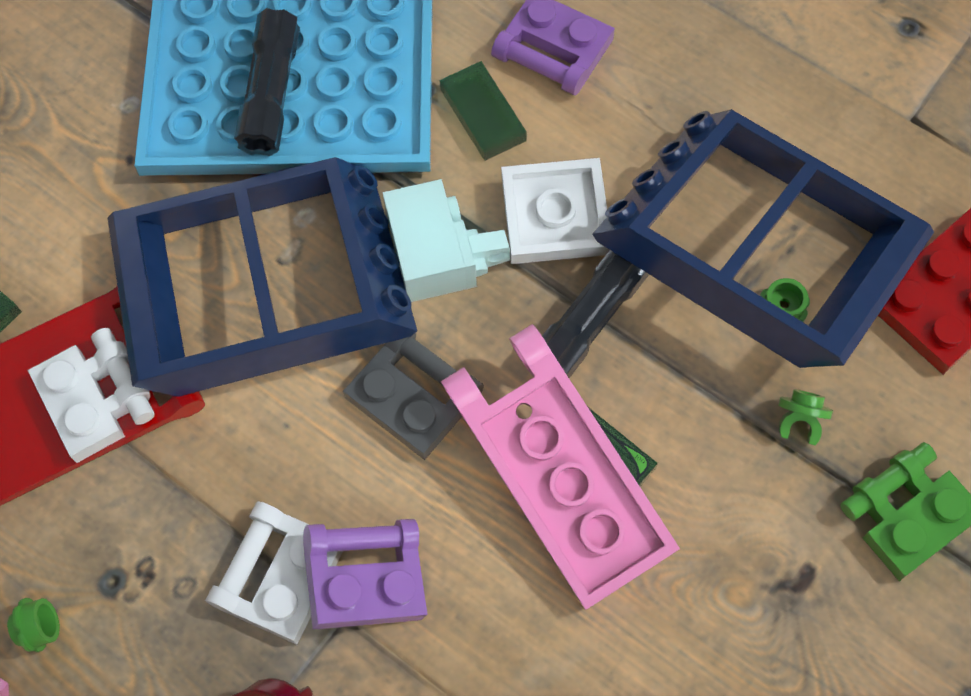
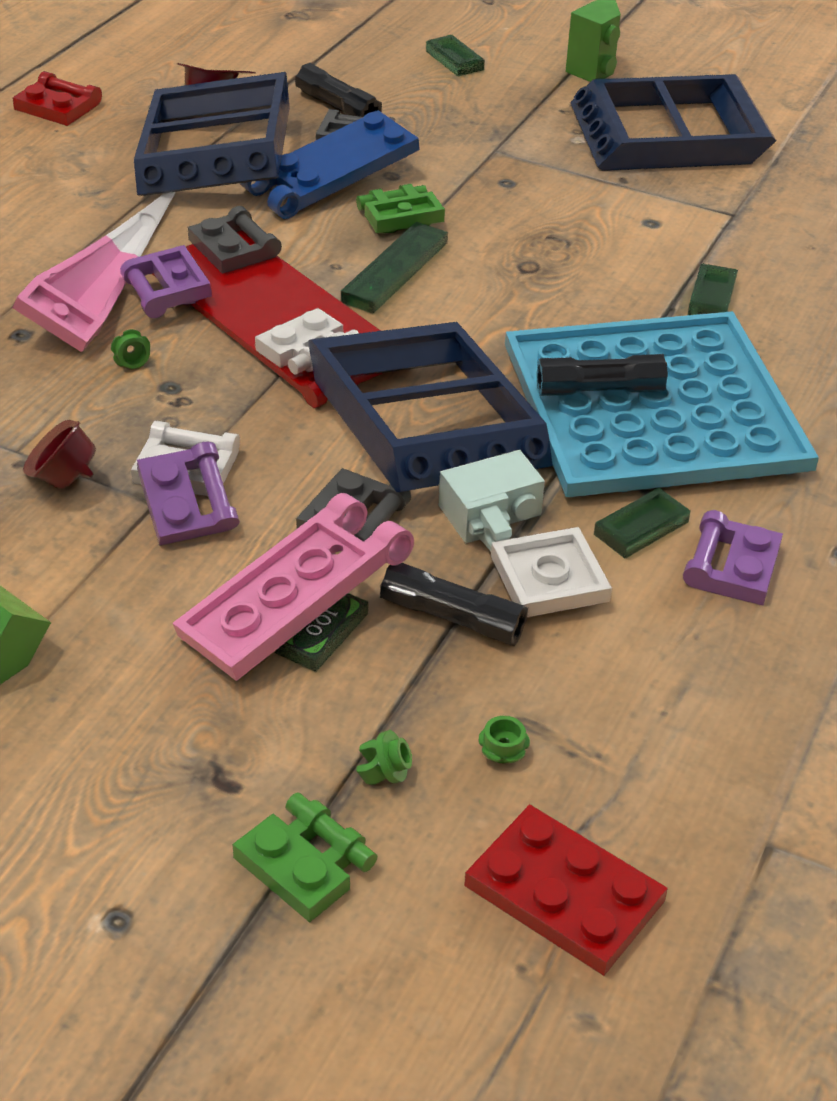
camera: 75 degrees right, 25 degrees down
(854, 301) = (523, 771): dark blue window -> none

